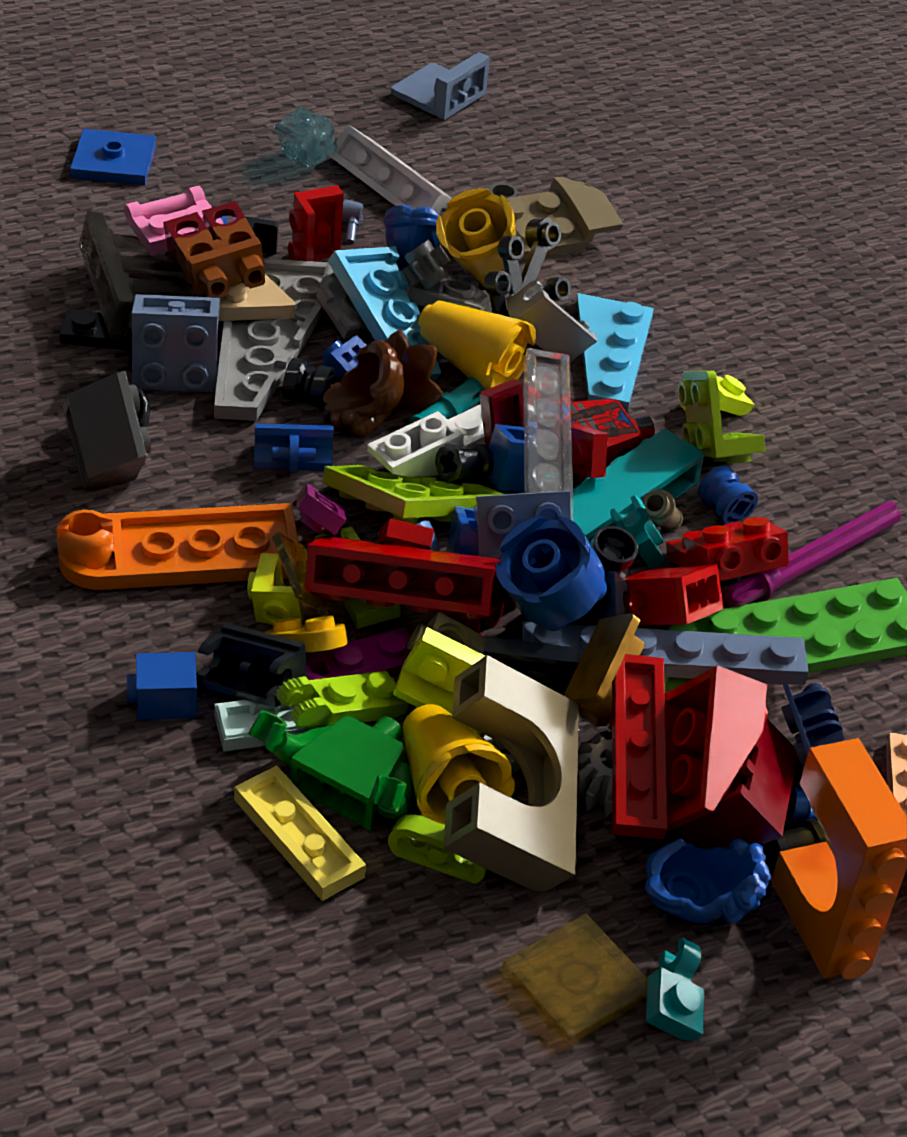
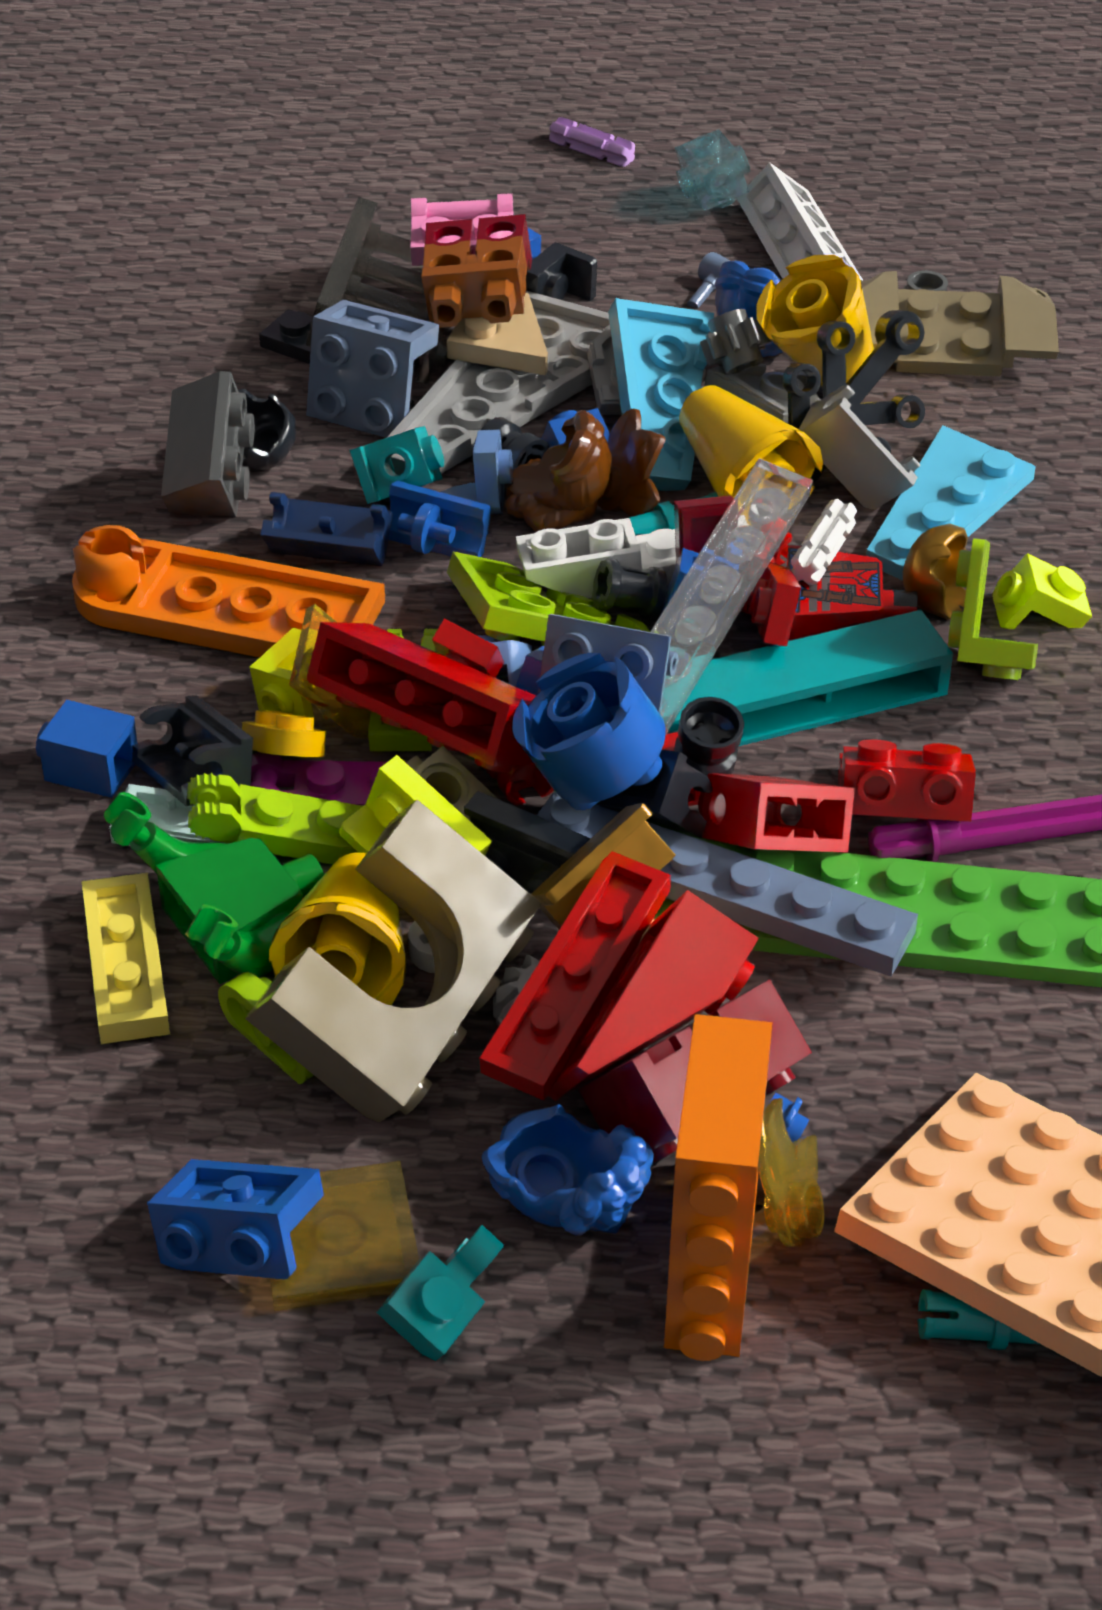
camera: 30 degrees right, 0 degrees up
(113, 157) = (470, 152): blue plate -> none
(197, 131) = (592, 142): none -> lavender axle
(223, 473) = (327, 530): none -> dark blue hinge
(230, 405) = (375, 468): none -> teal brick
(312, 400) = (492, 471): none -> medium blue plate
(316, 223) = (638, 263): red bracket -> none
(318, 511) = (390, 594): magenta plate -> none
(444, 90) = (947, 144): sand blue bracket -> none
(516, 990) = (233, 1217): none -> blue bracket
(580, 395) = (823, 541): none -> white axle
(642, 395) = (933, 569): none -> pearl gold hair
(643, 531) = (799, 732): teal plate -> none
(663, 510) = (843, 704): dark tan pin -> none
(724, 491) = (964, 714): blue wheel -> none
(813, 717) = (828, 1044): dark blue hinge -> none

